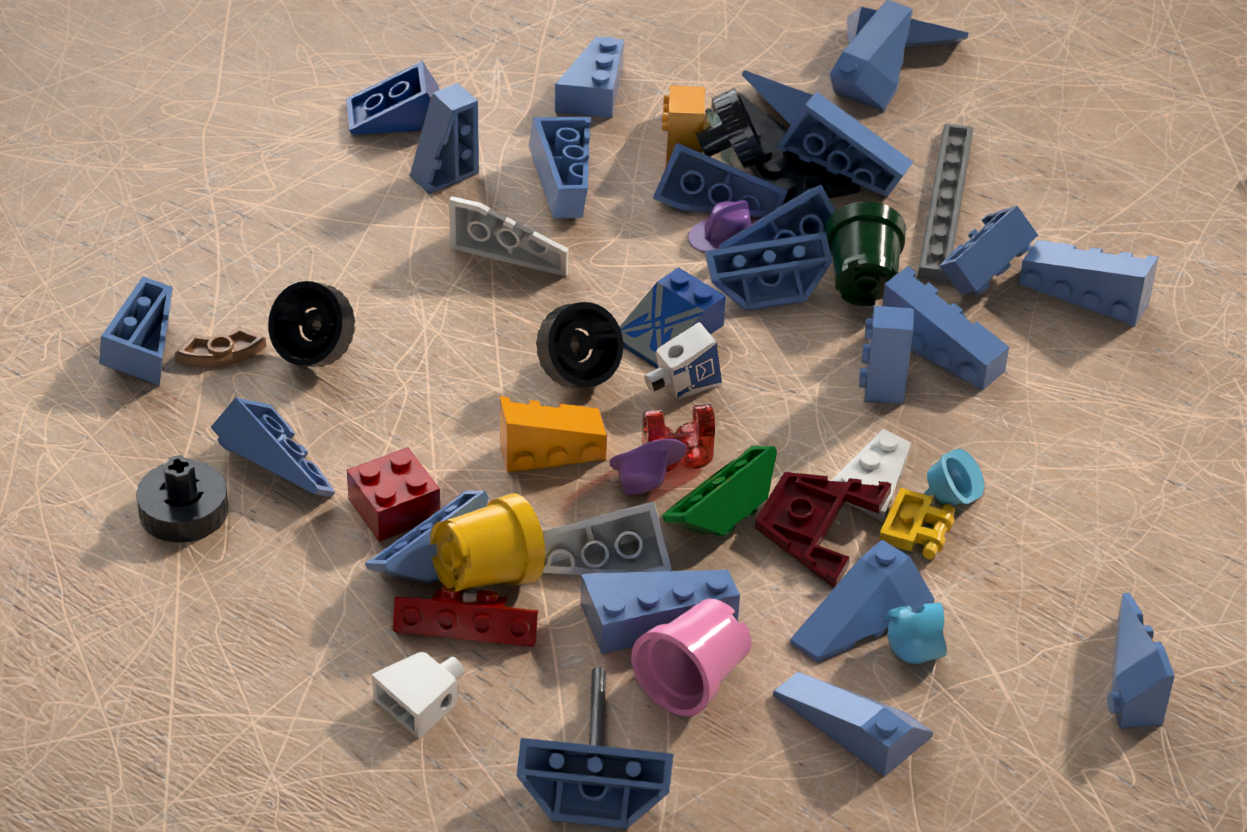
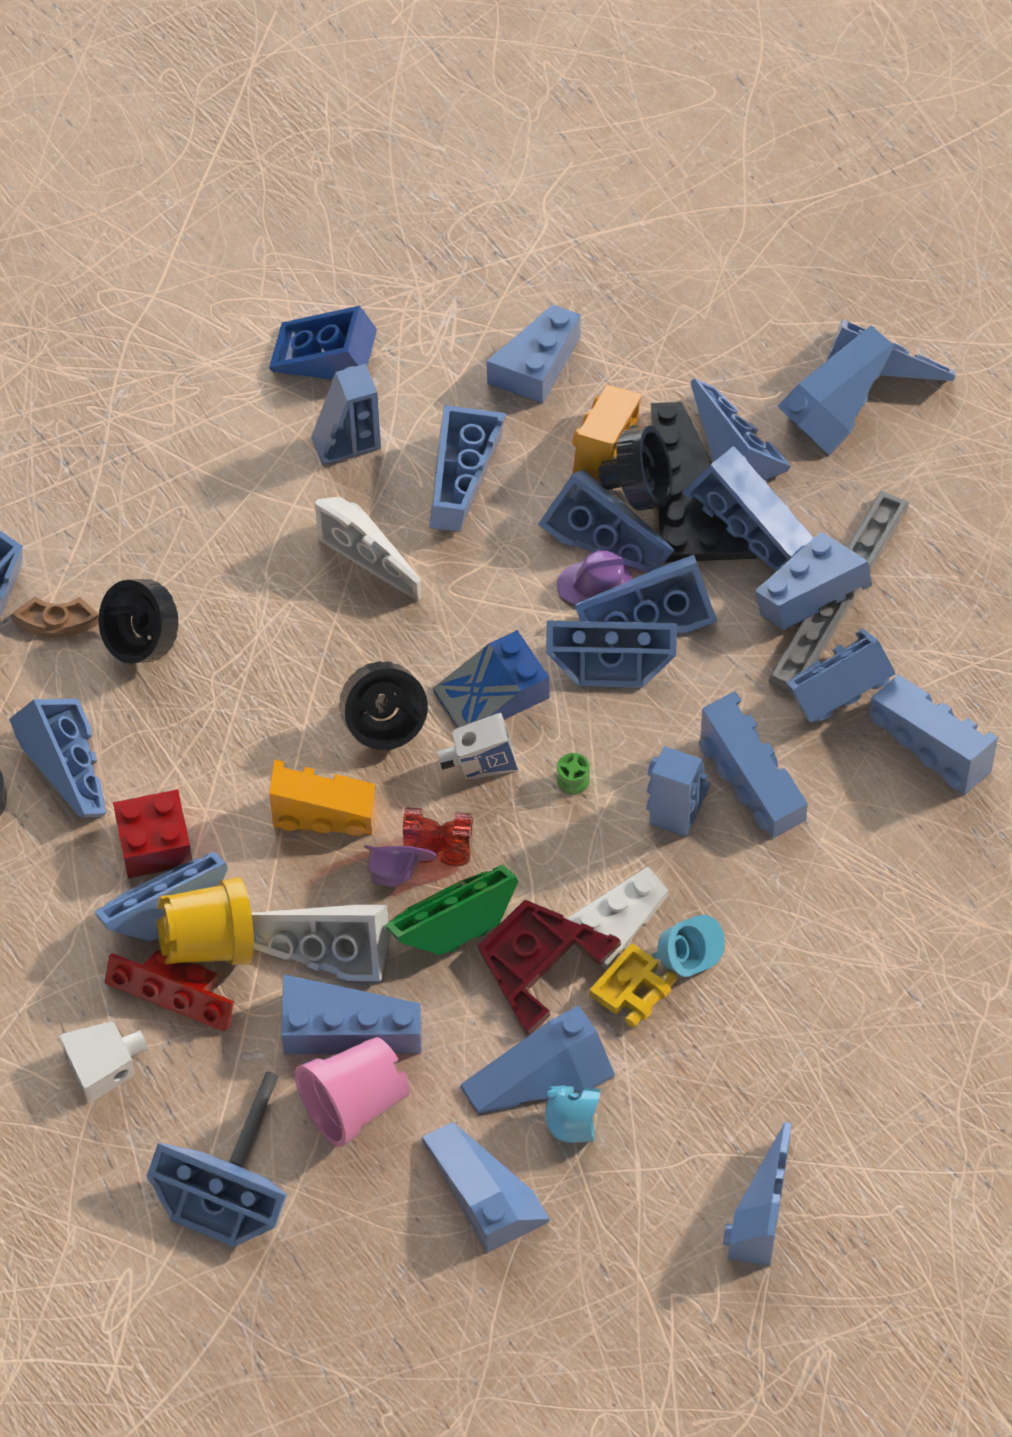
camera: 20 degrees right, 15 degrees up
(777, 372) = (568, 767): none -> bright green wheel
(865, 249) = (712, 652): dark green piece -> none
(927, 184) = (810, 580): none -> medium blue wedge

